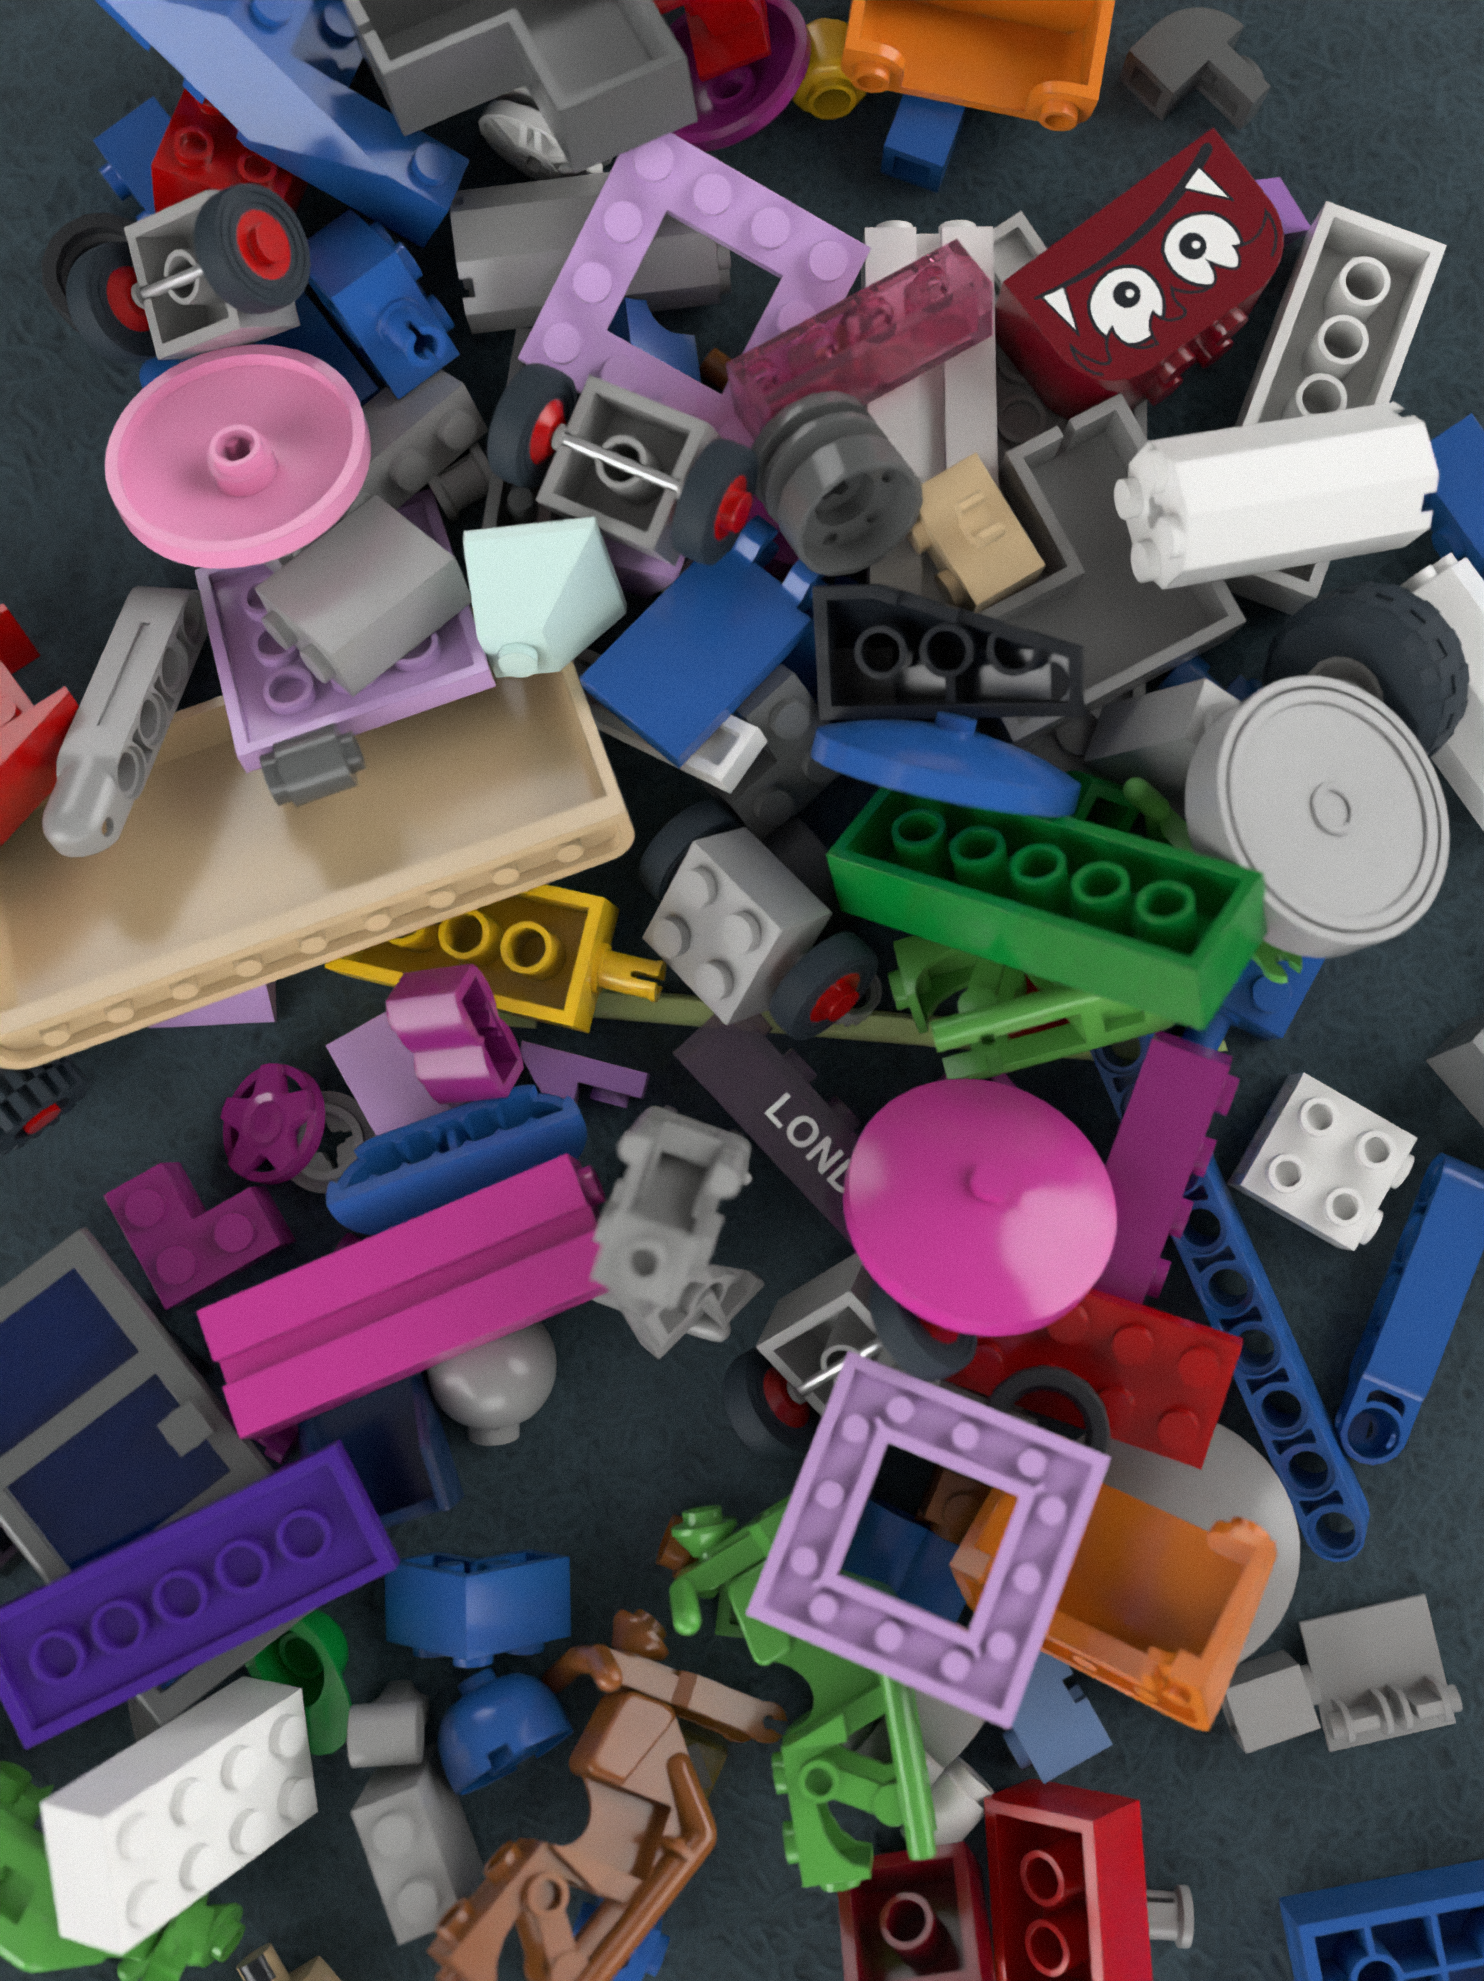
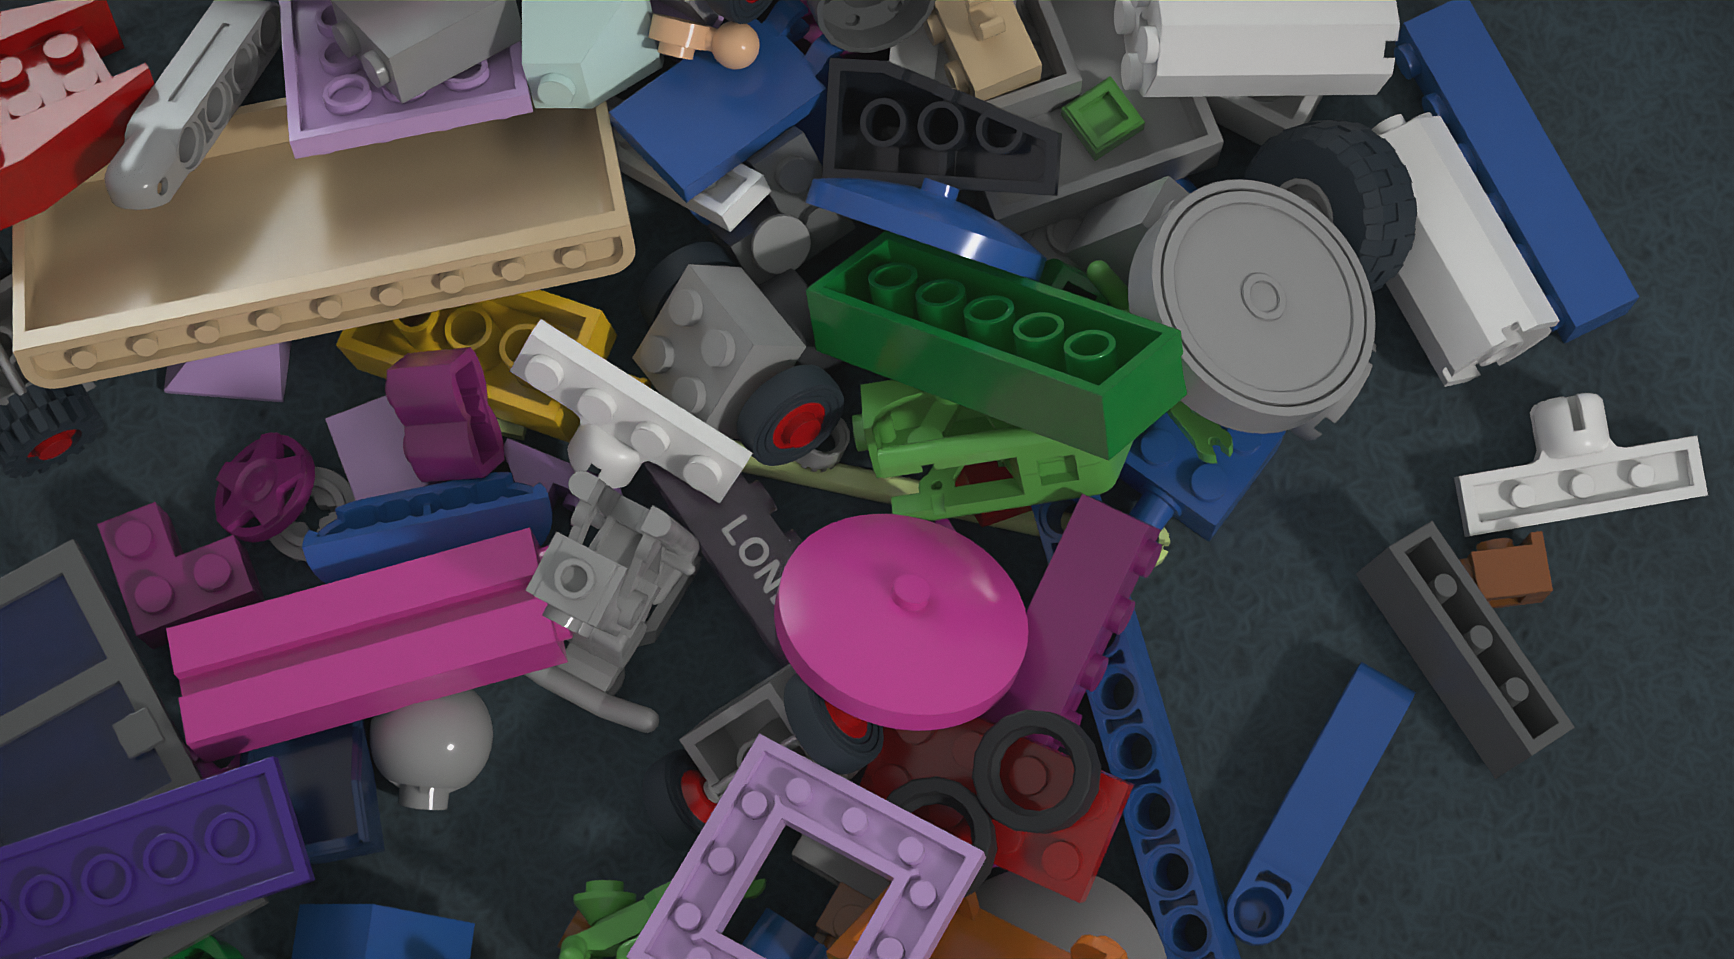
camera: 10 degrees right, 10 degrees down
(312, 765) = (356, 156): dark grey brick -> none
(648, 1018) = (626, 419): none -> white plate
(649, 581) = (731, 44): none -> light nougat plate
(718, 1294) = (611, 674): light grey slope -> none
(783, 794) = (780, 243): none -> light grey piece
(1104, 605) = (1102, 118): none -> bright green tile
(1128, 1400) = (988, 764): none -> black tyre
(1324, 1162) = (1246, 655): white brick -> none

